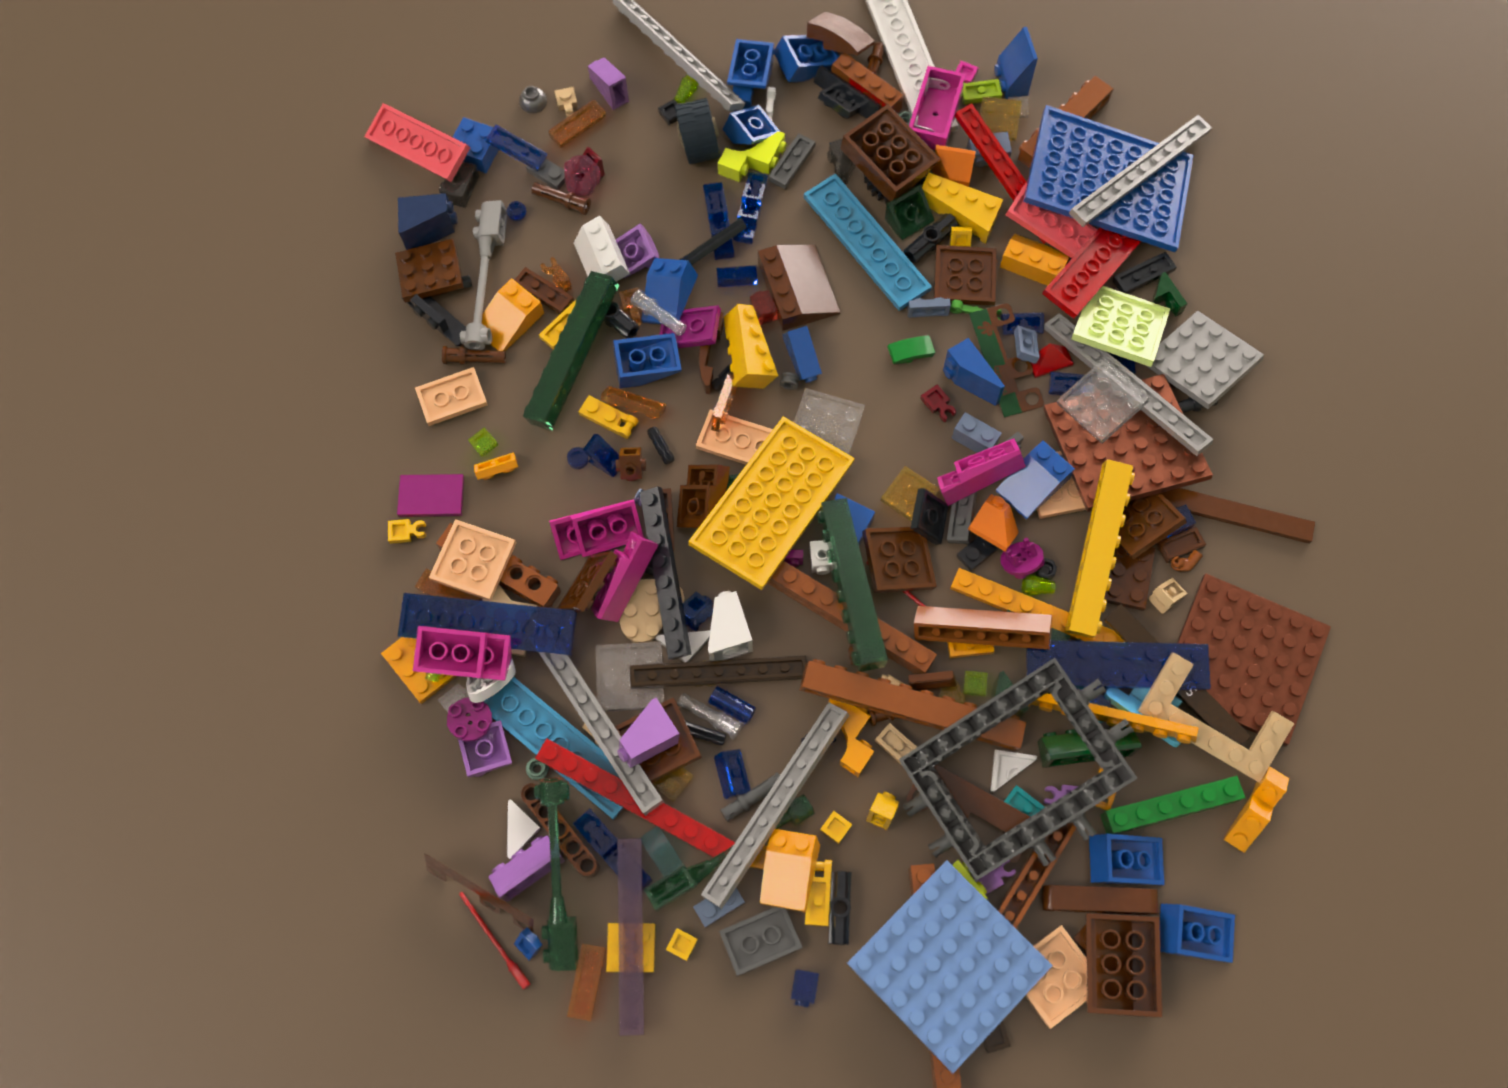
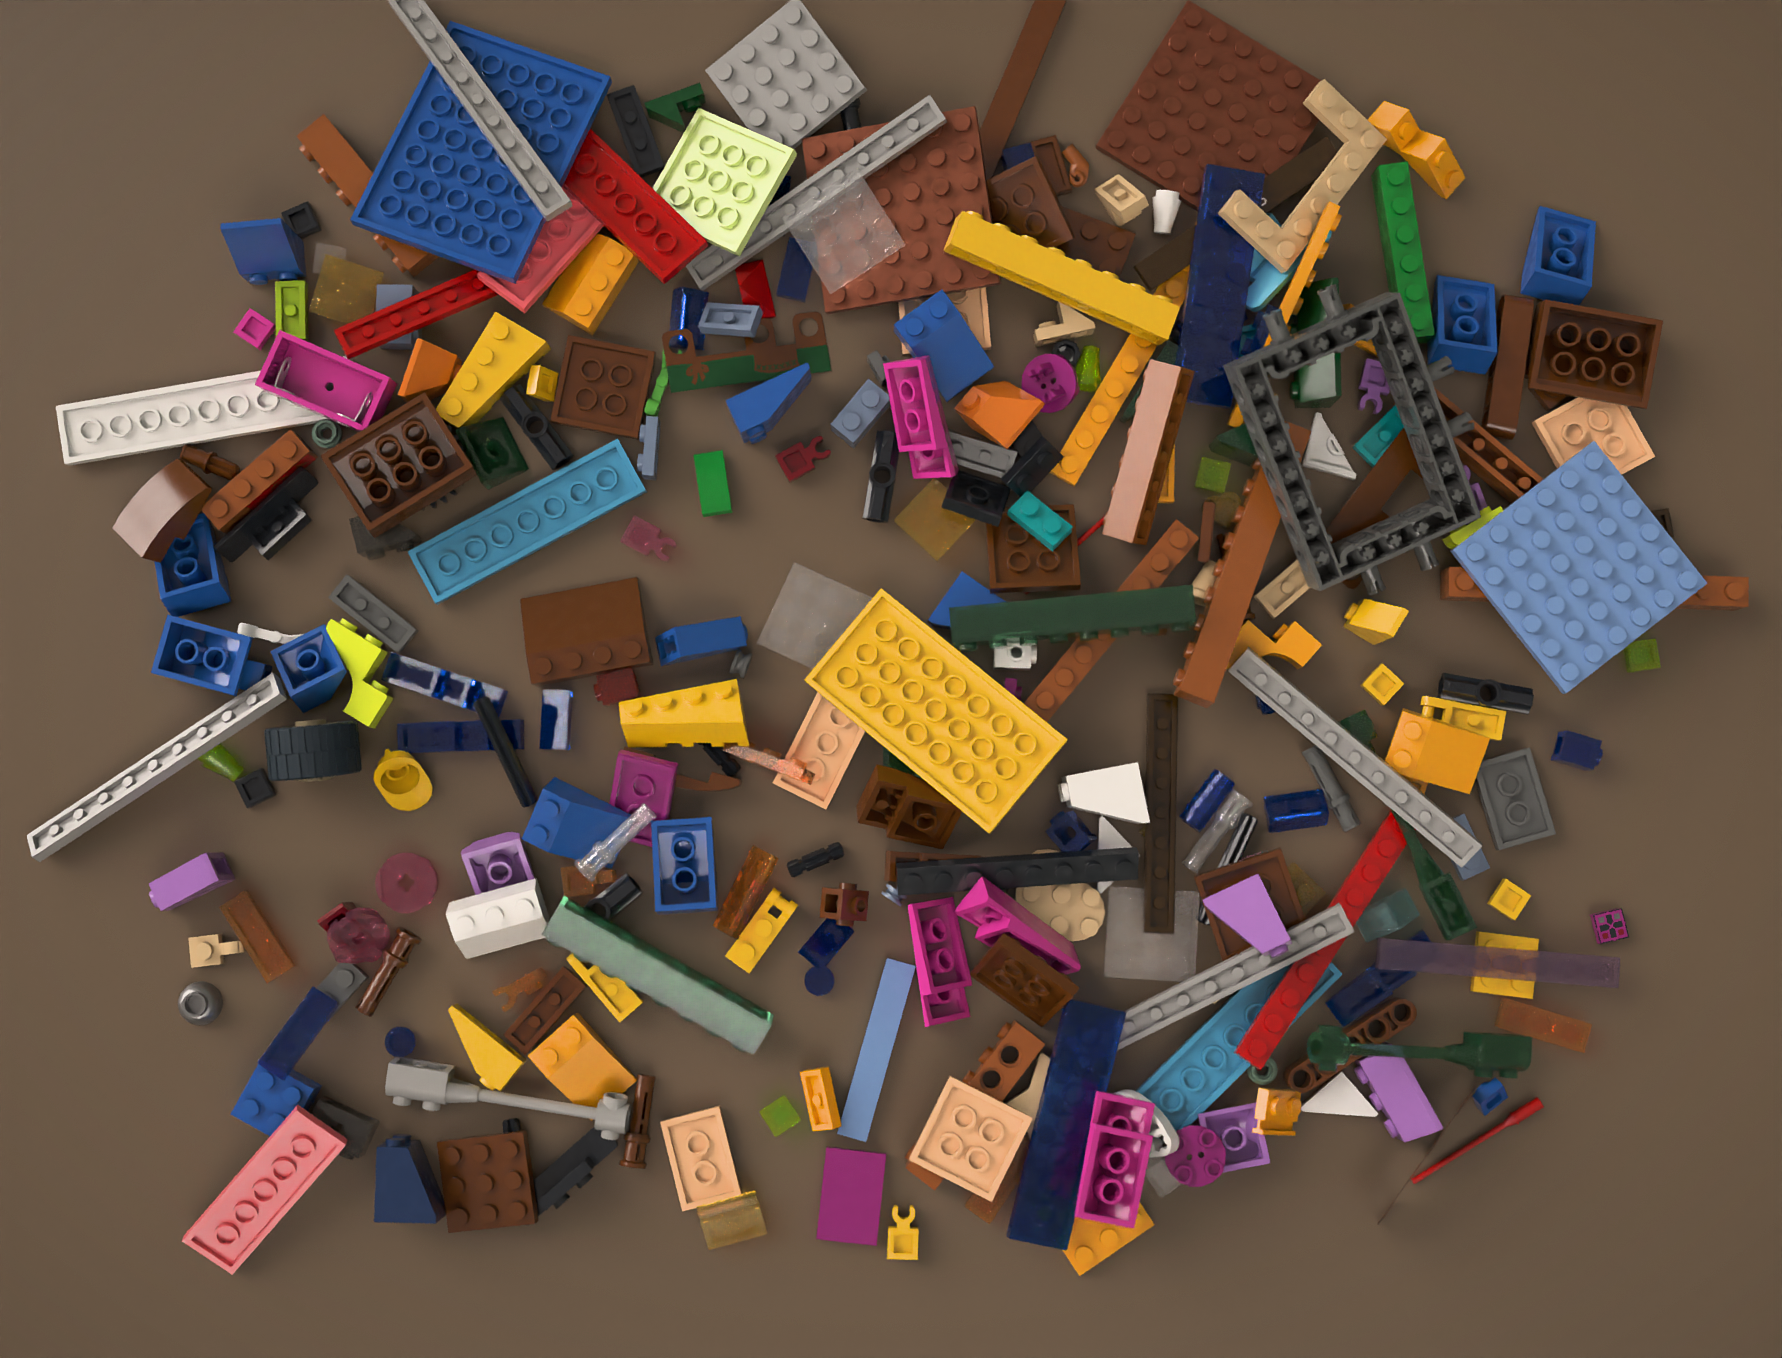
camera: 90 degrees left, 15 degrees up
(410, 419) = (732, 1220): none -> clear yellow plate
(505, 777) = (1277, 1111): none -> light orange plate
(514, 258) = (489, 1054): none -> yellow slope
(529, 499) = (876, 1049): none -> medium blue tile
(622, 211) = (396, 896): none -> clear pink plate
(669, 1030) = (1609, 925): none -> tile
(685, 187) = (402, 780): none -> yellow piece
(866, 311) = (644, 537): none -> clear pink plate
(888, 1034) = (1642, 655): none -> clear neon green plate
(920, 561) = (1040, 521): none -> teal plate
(921, 455) = (880, 495): none -> black piece
(958, 553) = (1032, 467): none -> black plate
(1041, 91) = (302, 220): none -> black tile
(1066, 569) = (1071, 326): none -> tan slope
(1167, 627) = (1165, 210): none -> white cone

